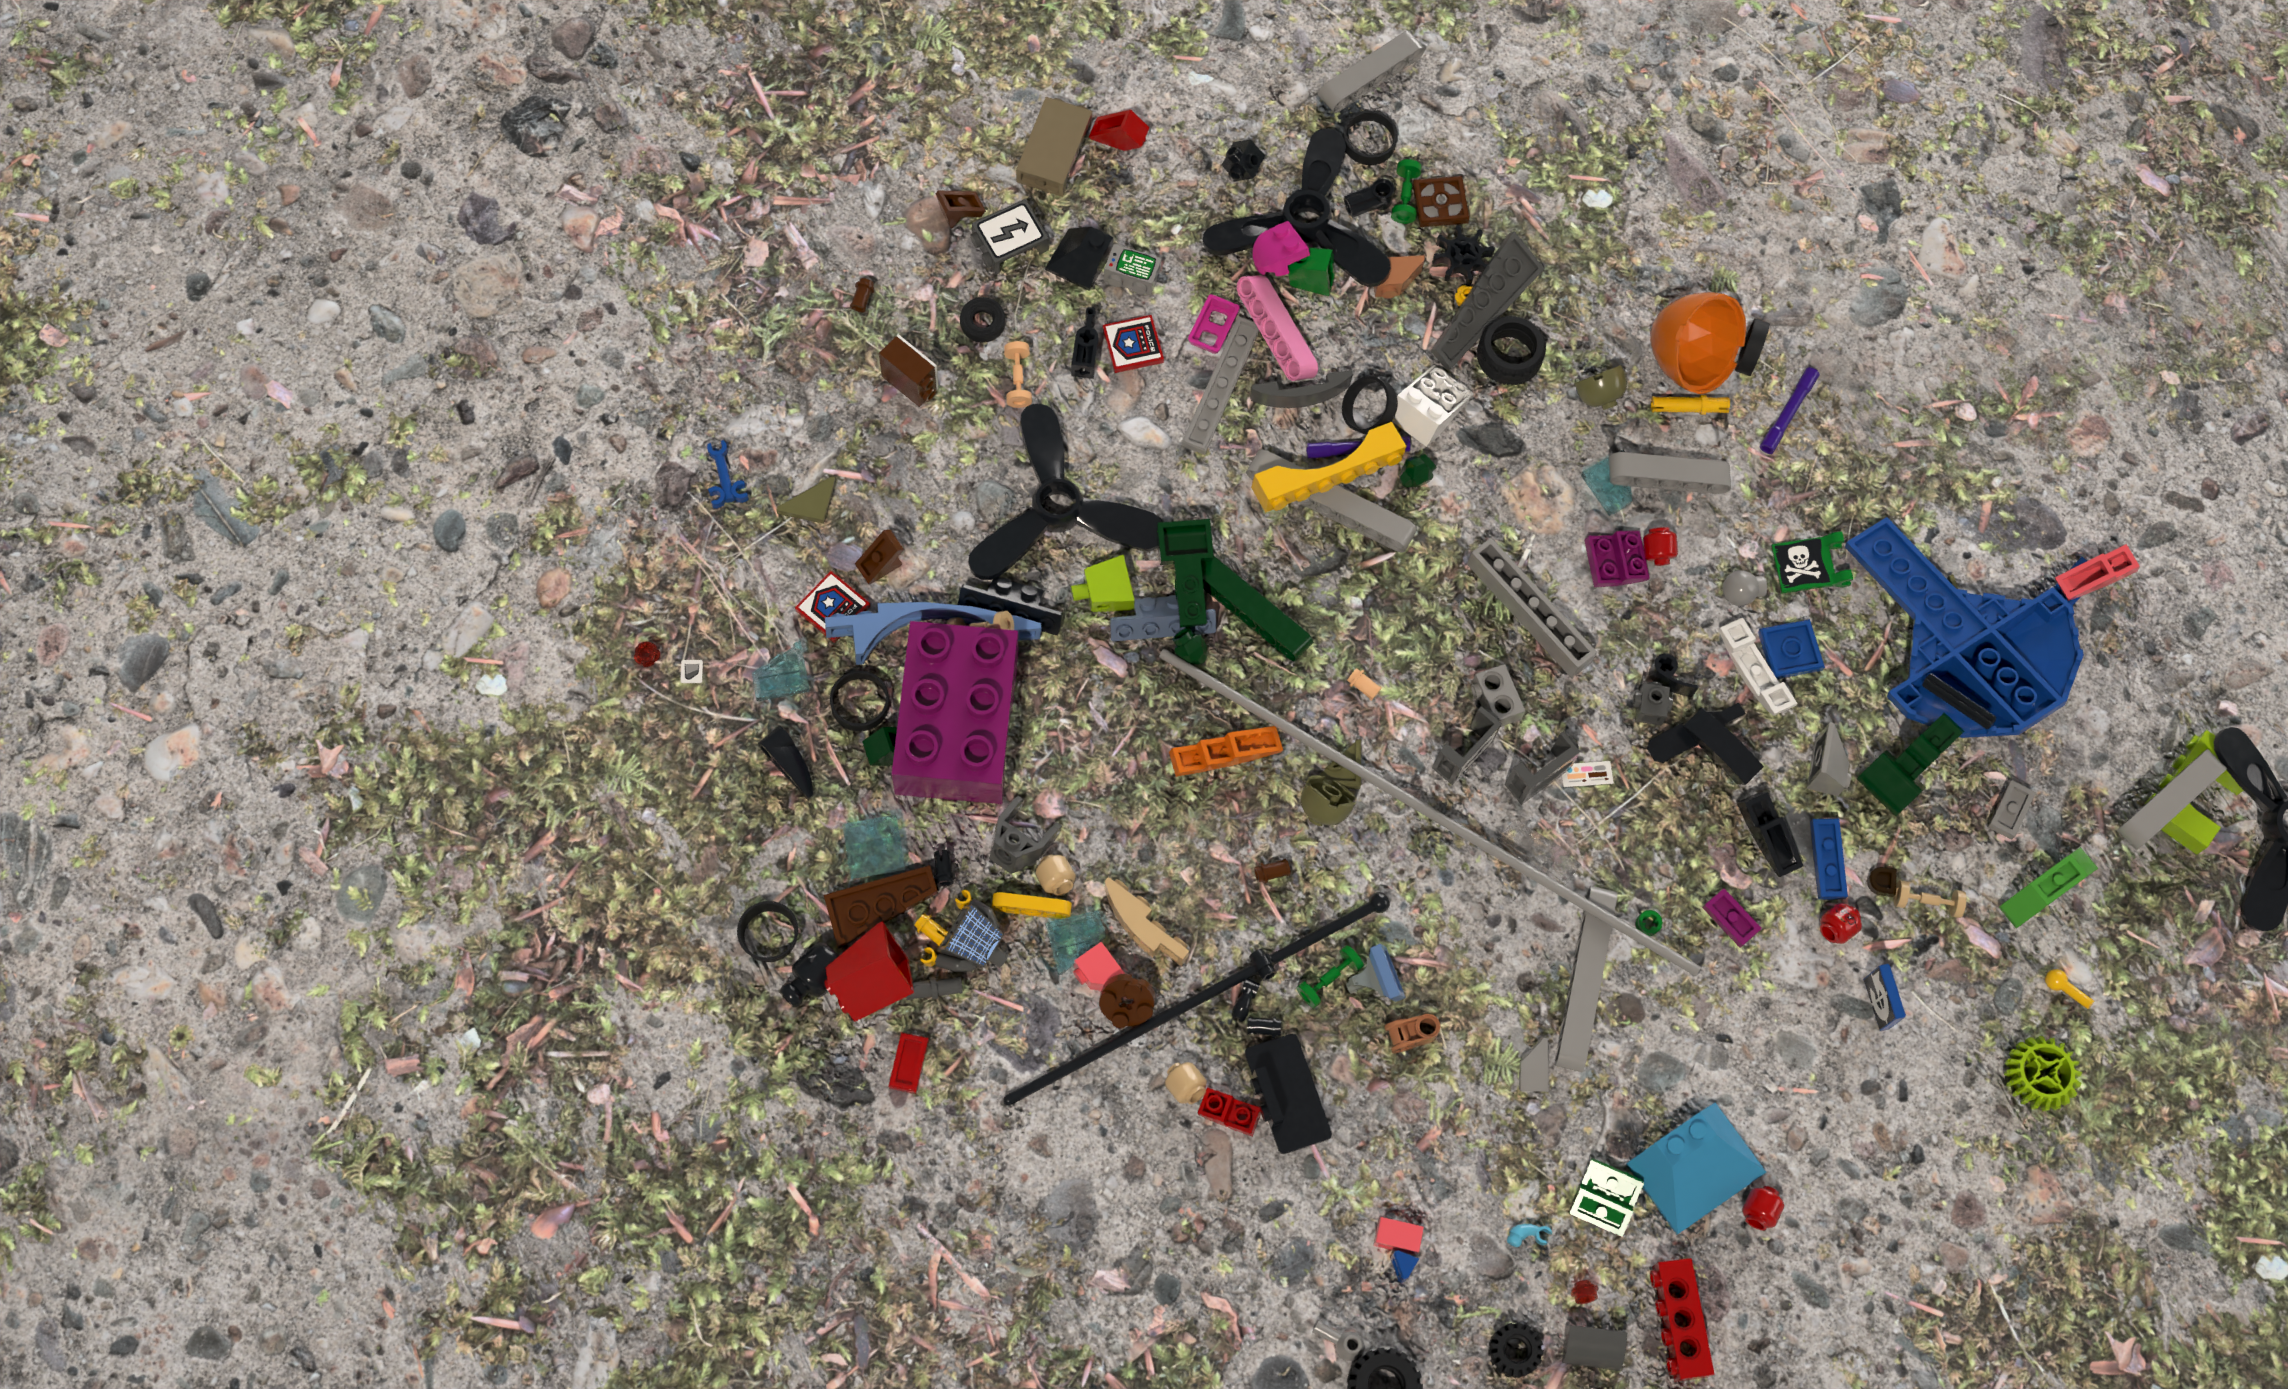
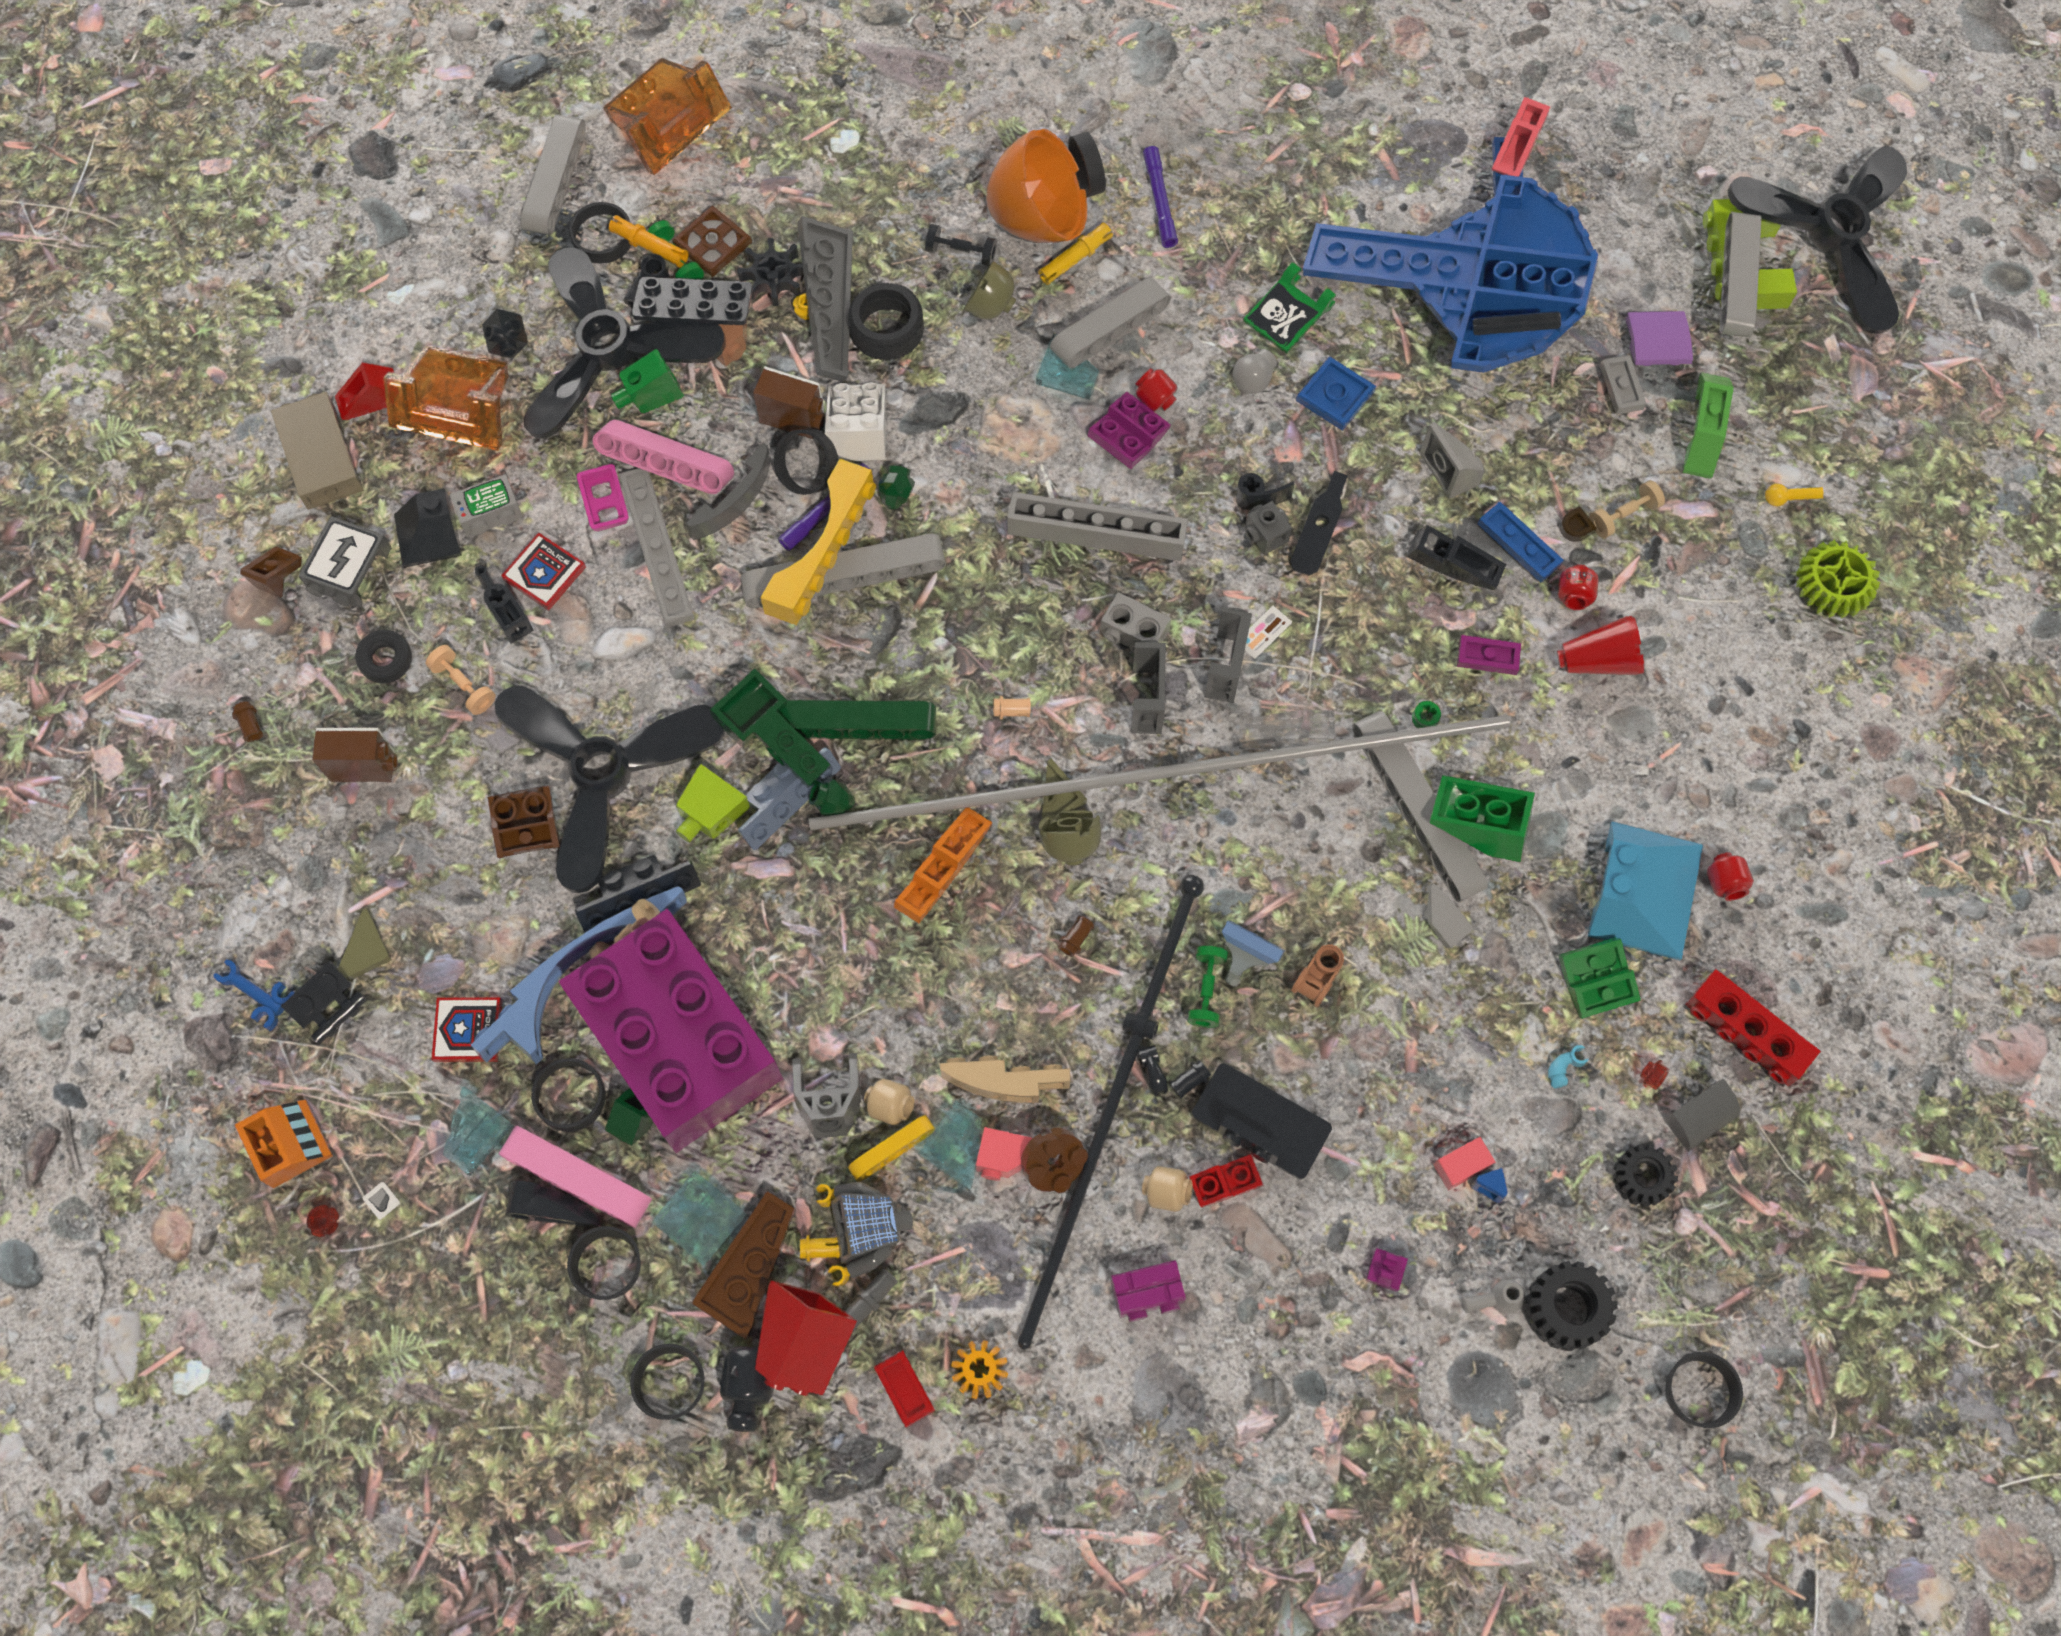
camera: 35 degrees left, 0 degrees up
(663, 584) = (283, 1141): none -> orange slope
(760, 509) = (317, 995): none -> black plate
(788, 801) = (581, 1244): none -> black tyre
(820, 756) = (575, 1176): none -> bright pink beam
(880, 557) = (474, 947): reddish brown slope -> none
(944, 874) = (782, 1183): black pin -> none
(976, 1091) = (969, 1375): none -> light orange gear
(979, 500) = (523, 821): none -> reddish brown slope
(1116, 1135) = (1148, 1290): none -> magenta brick
(1170, 176) = (449, 397): none -> clear orange windscreen
(1278, 249) = (606, 386): dark pink slope -> none
(1284, 1259) = (1386, 1269): none -> magenta tile
(1387, 234) = (692, 301): none -> bracket
(1390, 159) = (640, 237): none -> light orange pin
(1393, 355) = (788, 402): none -> reddish brown piece
(1488, 84) = (668, 110): none -> clear orange windscreen
(1596, 317) = (933, 239): none -> black wheel
(1623, 1022) = (1484, 816): none -> green slope
(1722, 746) = (1356, 517): black slope -> none
(1753, 668) = (1322, 433): white slope -> none
(1817, 982) = (1605, 650): none -> red cone
(1884, 997) = (1669, 618): tile -> none
(1895, 780) = (1515, 432): dark green plate -> none
(2071, 798) = (1659, 338): none -> medium lavender slope

